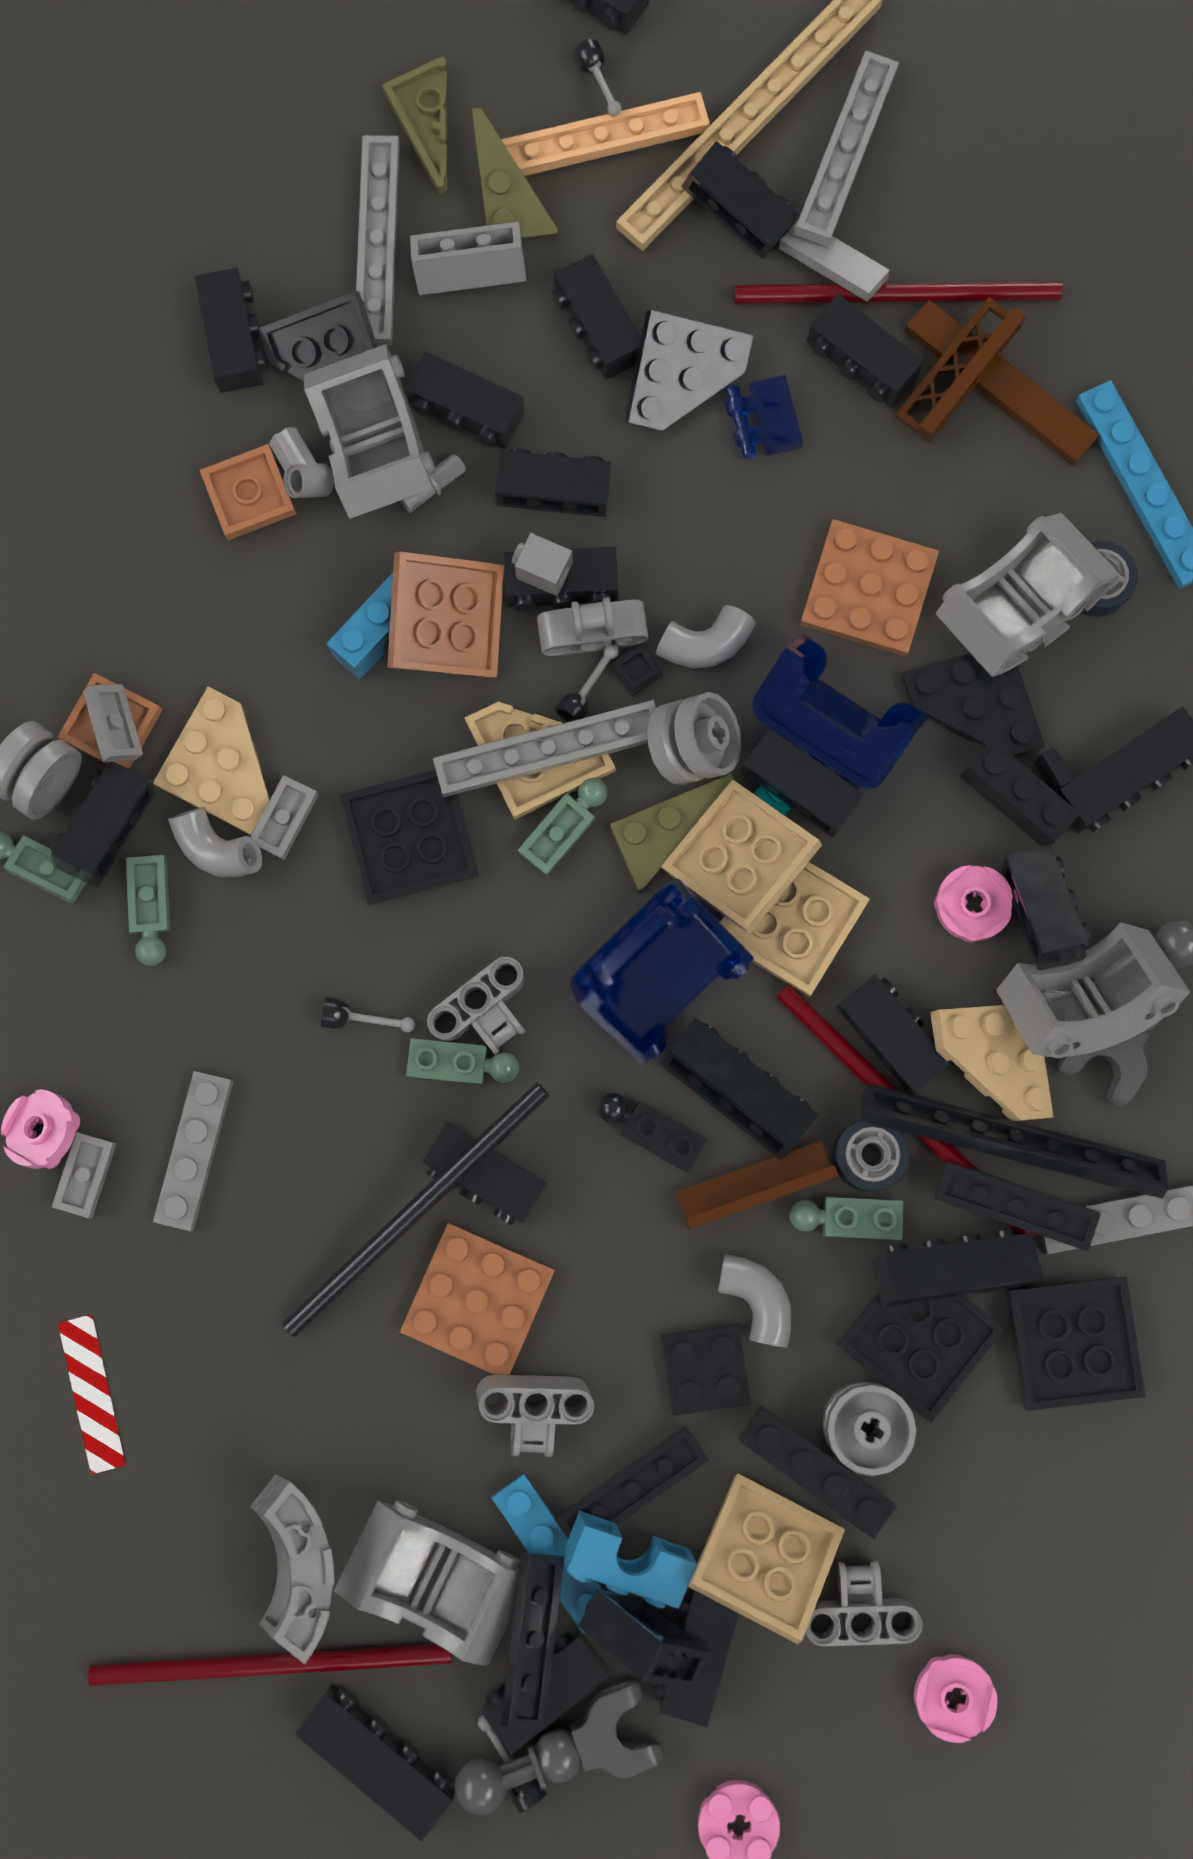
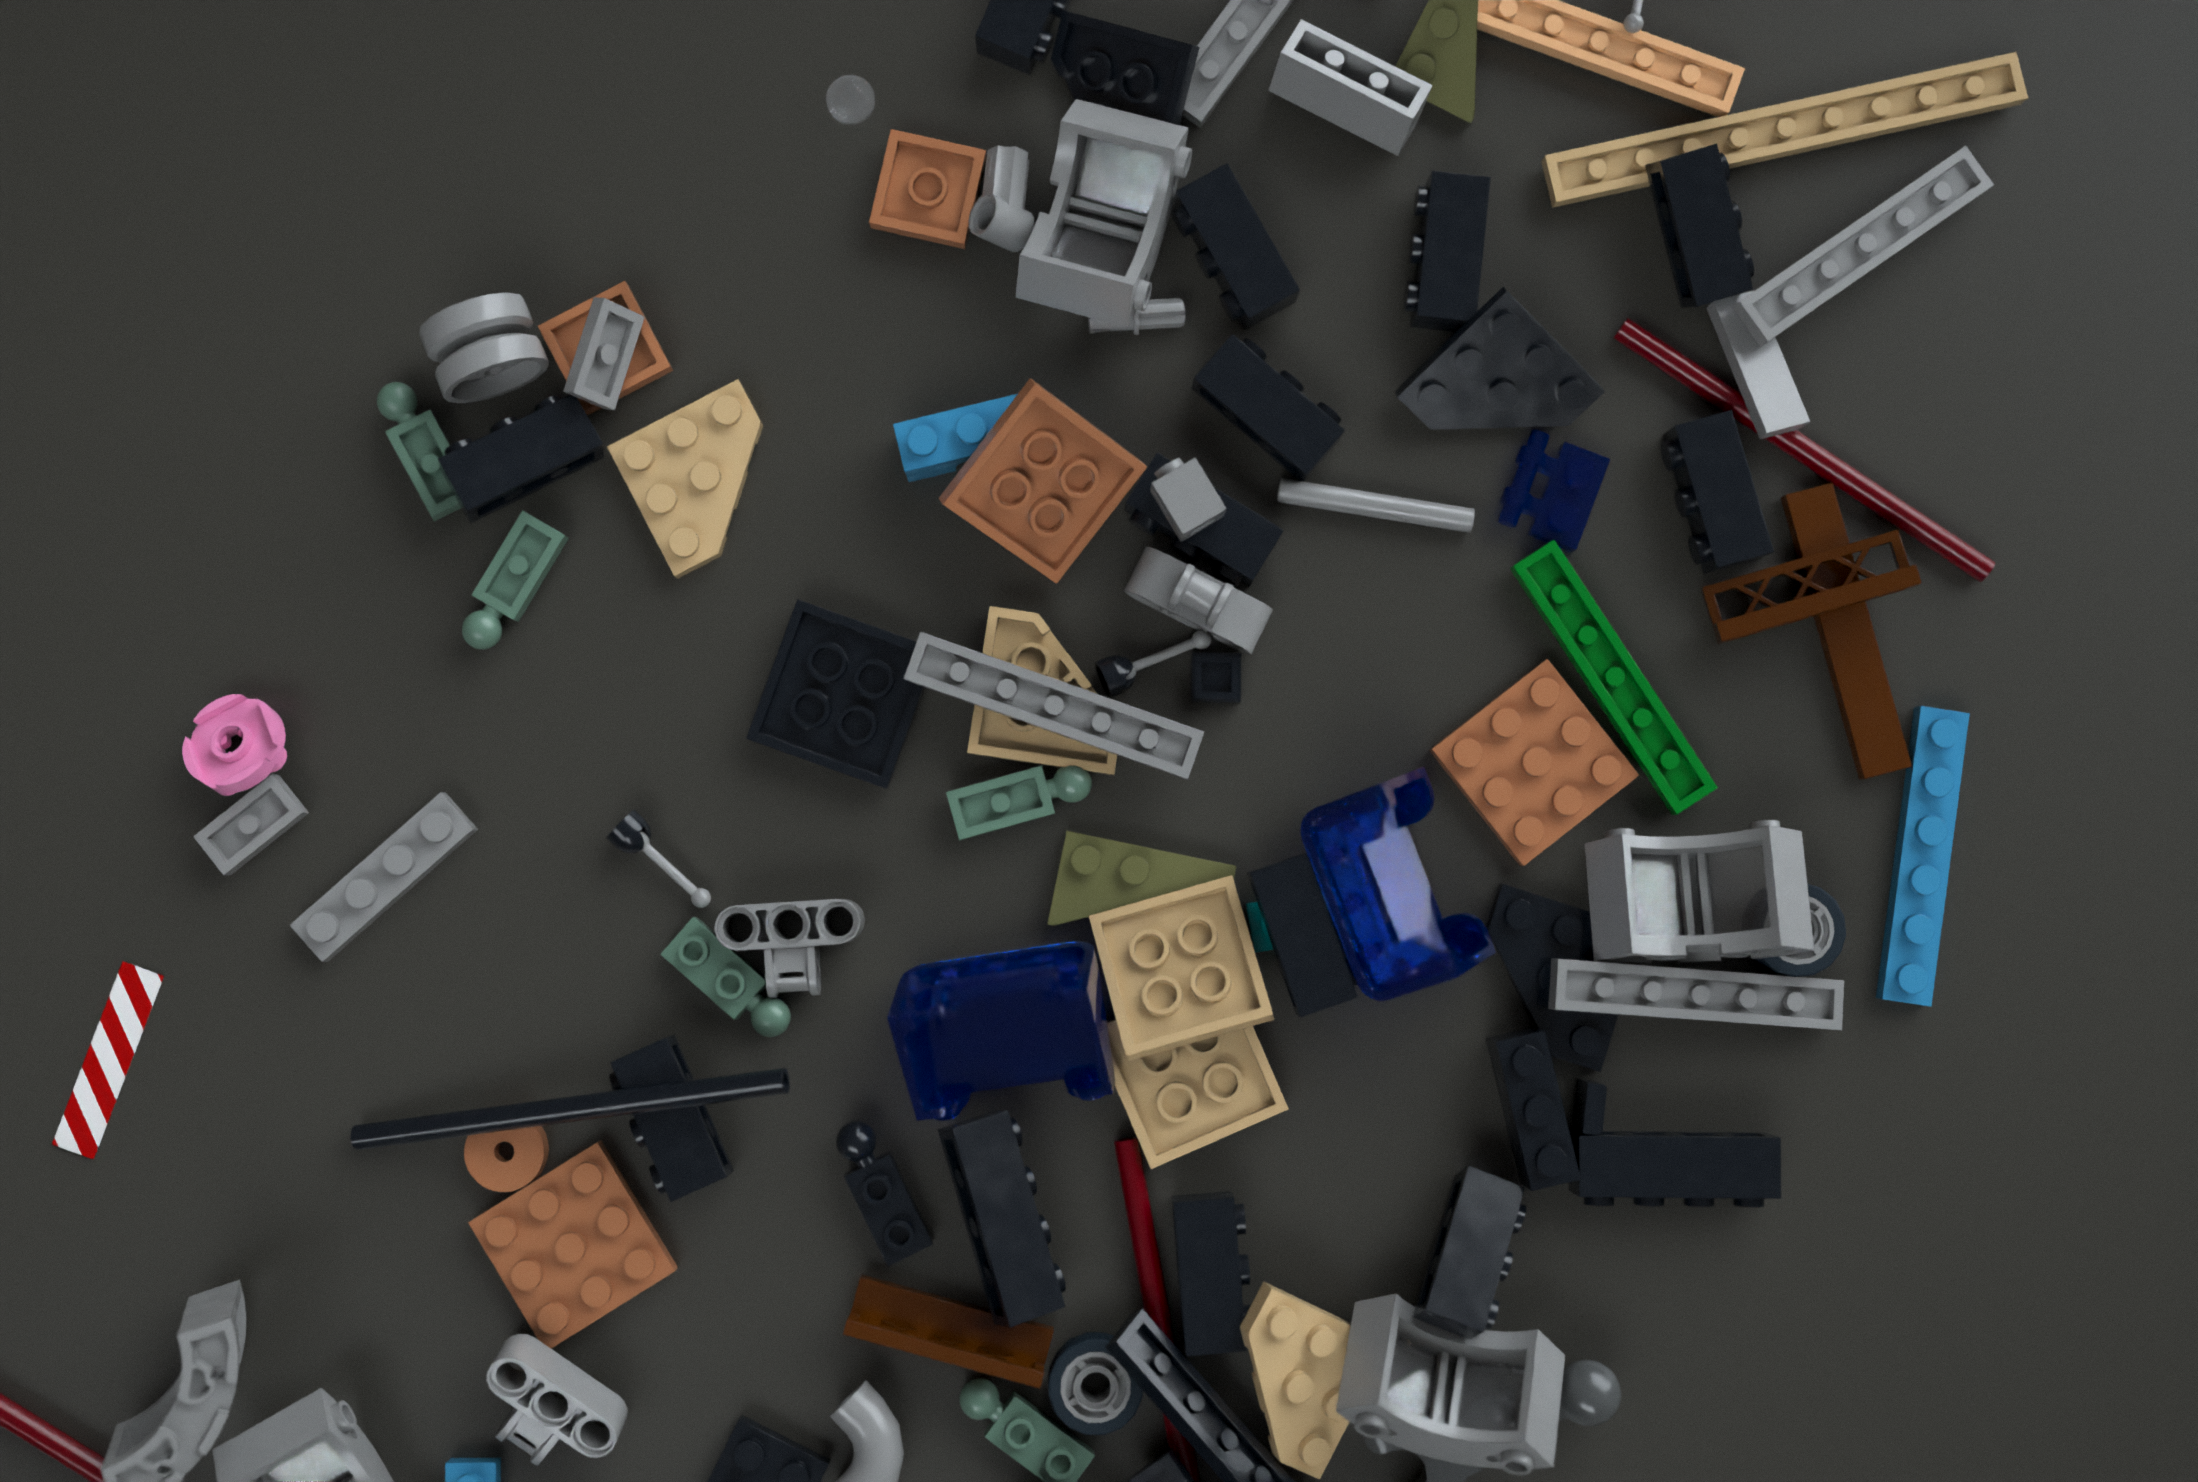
camera: 25 degrees right, 5 degrees up
(160, 471) = (850, 99): none -> clear plate
(209, 851) = (617, 566): light grey cylinder -> none
(284, 817) = (720, 581): light grey plate -> none
(409, 1277) = (501, 1174): none -> nougat piece
(661, 498) = (1375, 505): none -> light grey piece
(694, 738) = (1218, 806): light grey wheel -> none
(710, 646) = (1309, 709): light grey cylinder -> none
(881, 503) = (1613, 678): none -> green plate
(995, 906) = (1422, 1208): bright pink plate -> none
(1068, 656) = (1696, 994): none -> light grey plate

